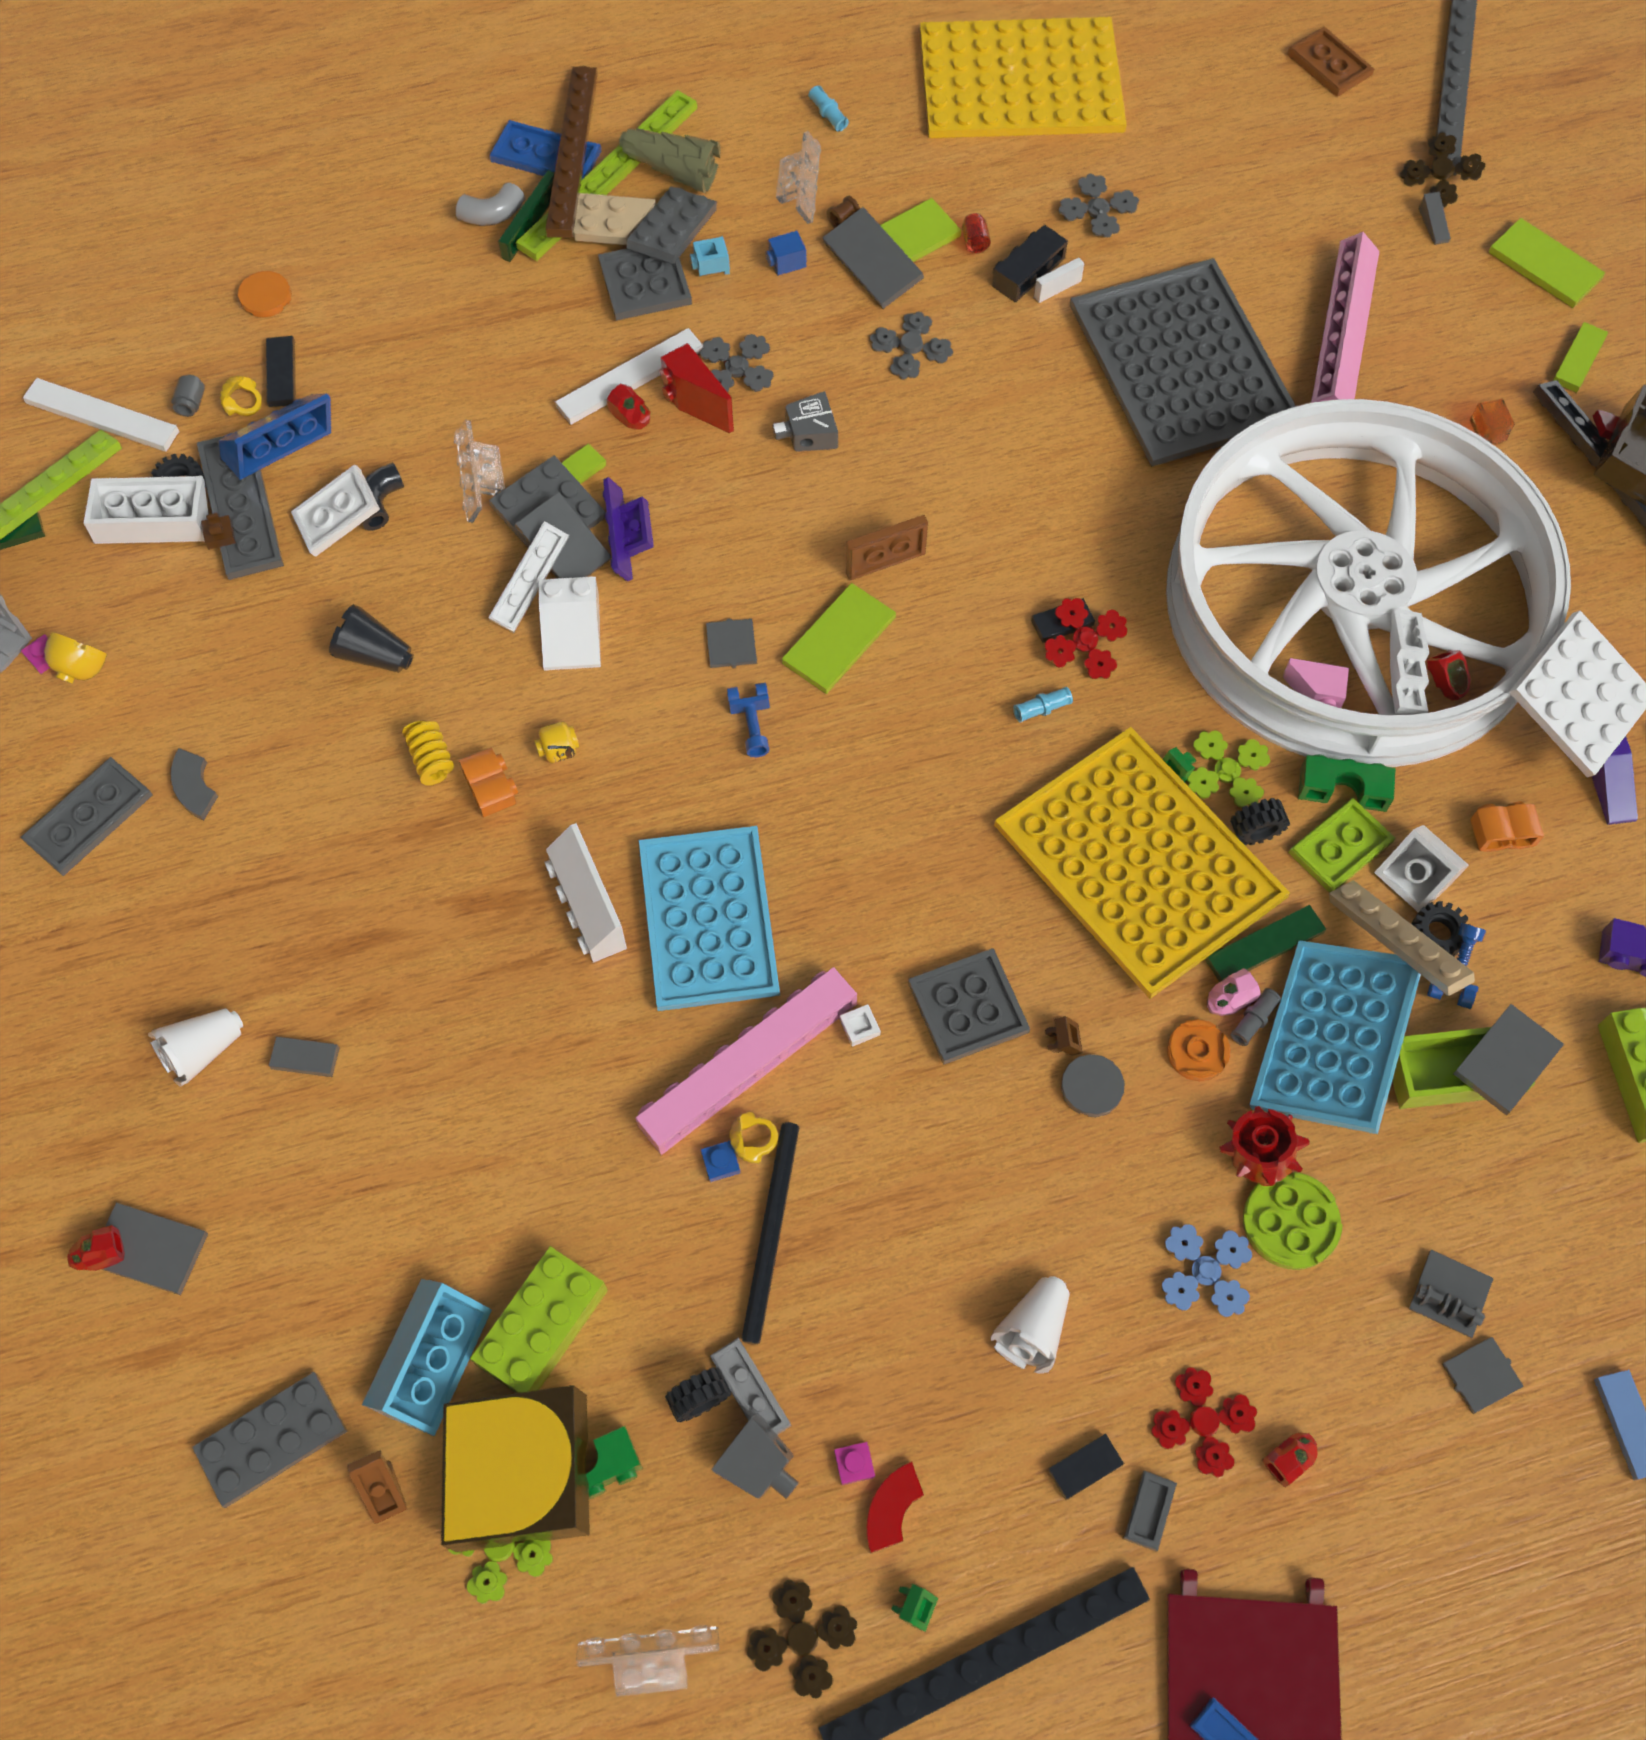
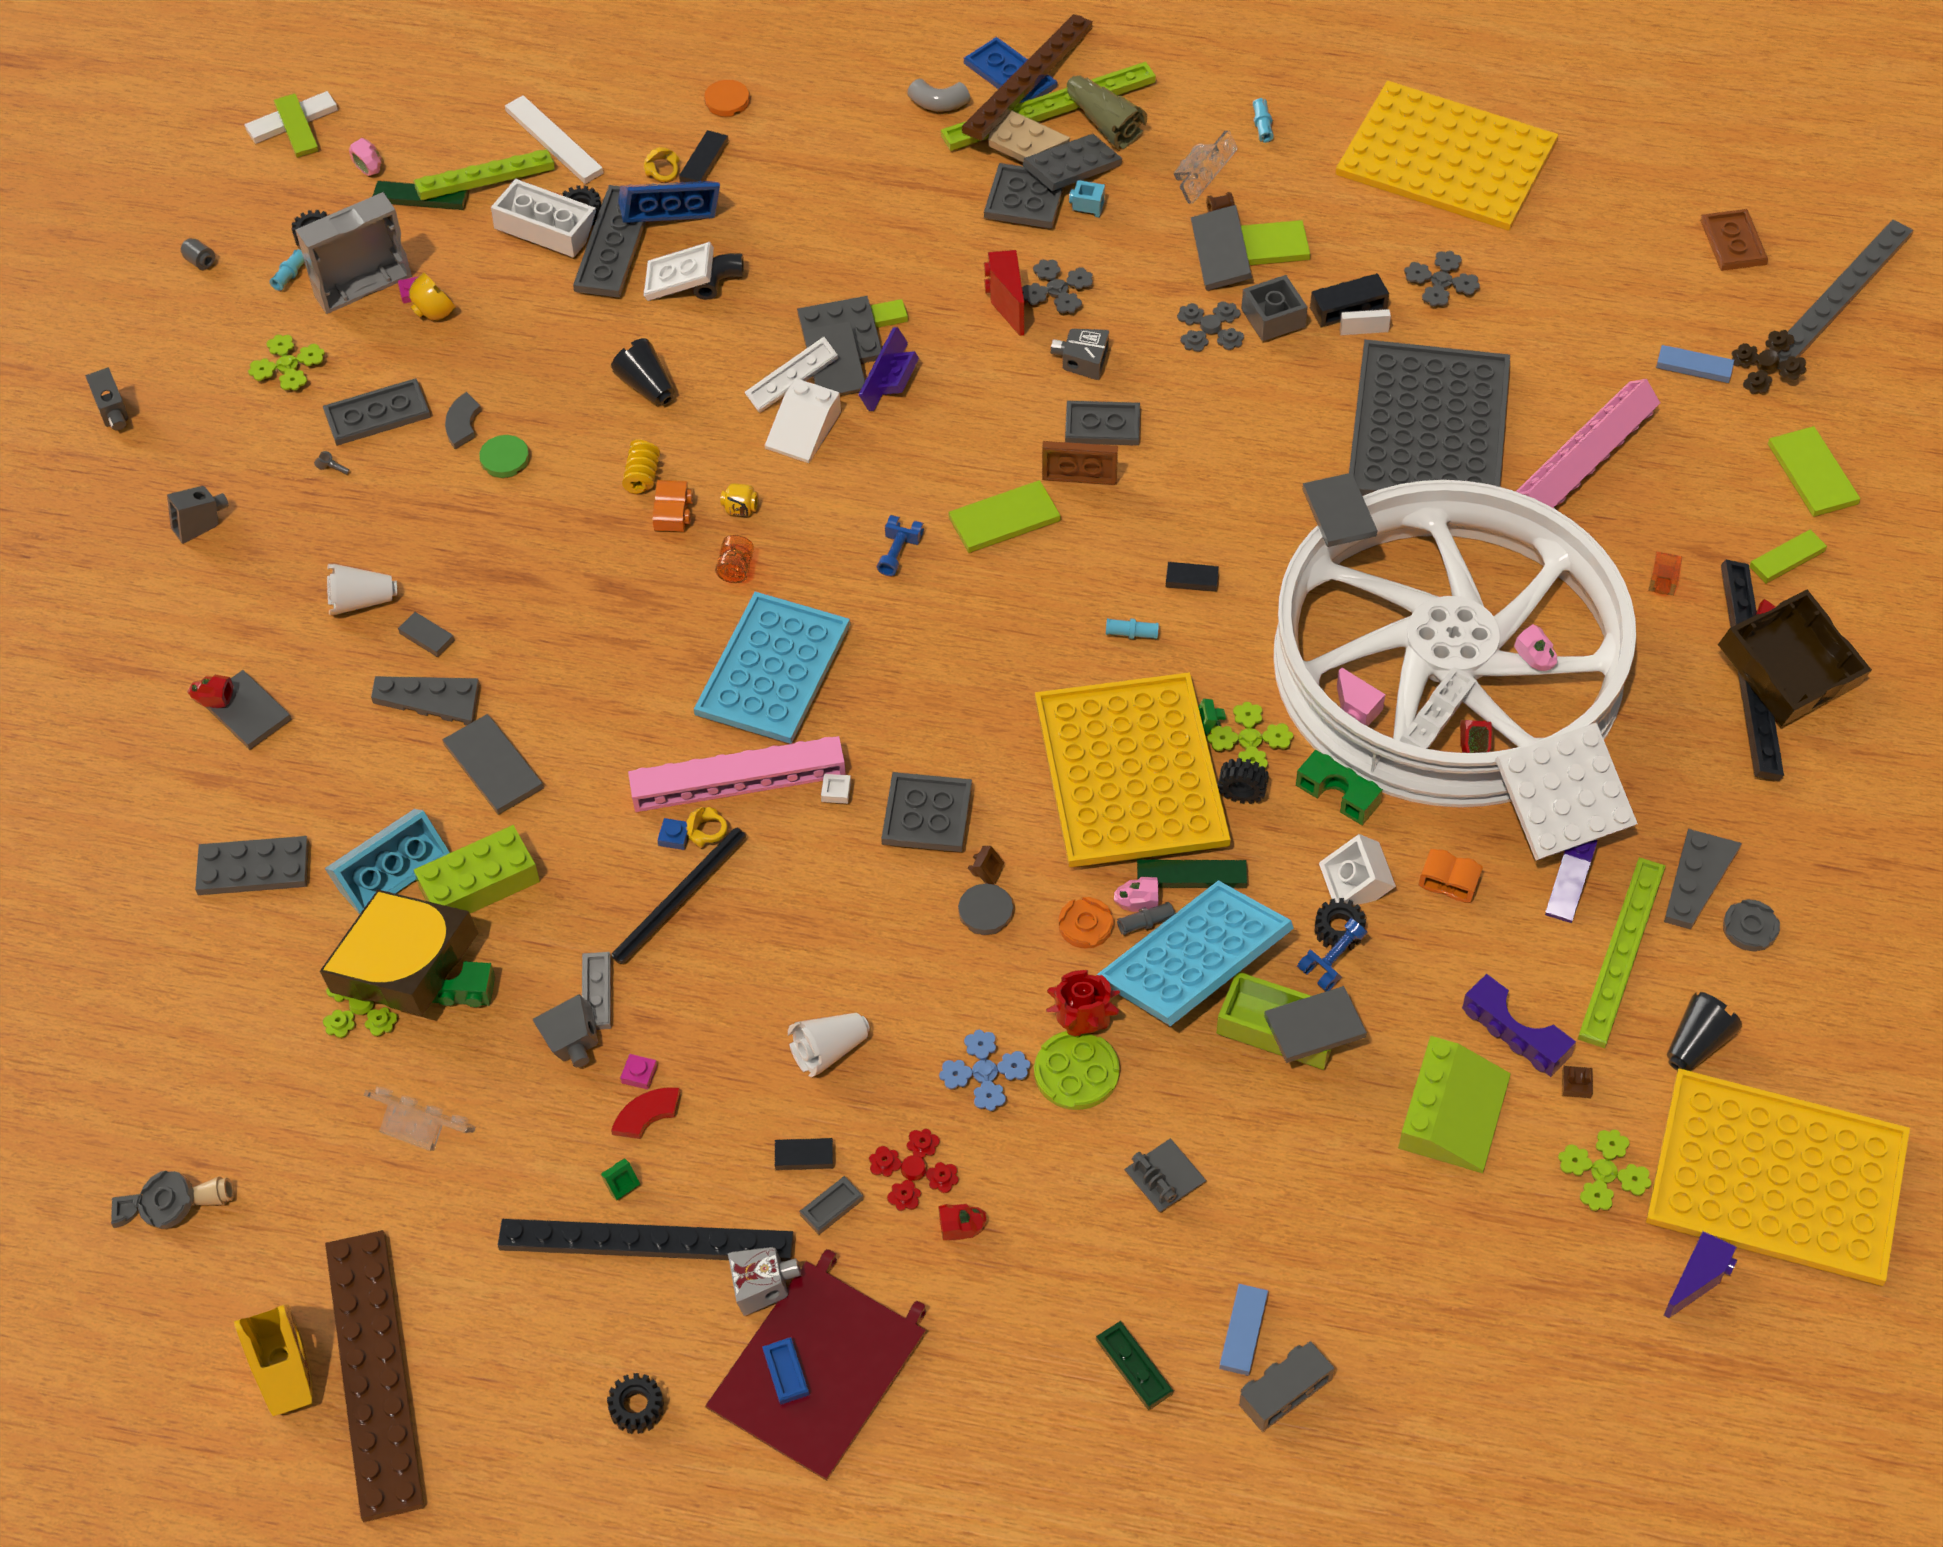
camera: 30 degrees right, 10 degrees down
(67, 900) = (325, 460): none -> dark grey hand
(187, 395) = (623, 149): dark grey brick -> none
(218, 531) = (584, 252): reddish brown tile -> none
(265, 804) = (504, 456): none -> bright green tile
(363, 1125) = (429, 695): none -> dark grey wing
(377, 1486) = (303, 923): dark orange slope -> none
(472, 1176) = (493, 764): none -> dark grey tile
(479, 470) = (807, 286): clear bracket -> none
(527, 216) = (956, 115): dark green tile -> none
(585, 895) = (690, 611): white slope -> none
(595, 813) = (734, 559): none -> clear orange wheel
(628, 407) = (950, 284): red rock -> none
(633, 373) = (958, 263): white tile -> none
(698, 1394) = (554, 968): black tyre -> none
(731, 643) = (919, 486): dark grey piece -> none
(786, 253) = (1151, 217): blue brick -> none
(802, 1639) = (528, 1162): dark brown plant -> none
(872, 493) = (1102, 422): none -> dark grey tile
(967, 300) = (1274, 308): none -> dark grey brick
(976, 233) = (1319, 260): clear red brick -> none
(1086, 638) = (1198, 595): red plant -> none
(1140, 1644) = (760, 1277): none -> light grey torso
(1196, 491) = (1339, 509): none -> dark grey tile
(1341, 845) = (1304, 831): lime tile -> none
(1377, 198) = (1695, 363): none -> medium blue tile
(1402, 938) = (1289, 901): tan plate -> none
(1434, 218) = (1735, 397): dark grey piece -> none
(1458, 555) = (1536, 648): none -> bright pink rock
(1482, 1375) = (1151, 1242): dark grey piece -> none
(1556, 1525) = (1134, 1365): none -> dark green tile

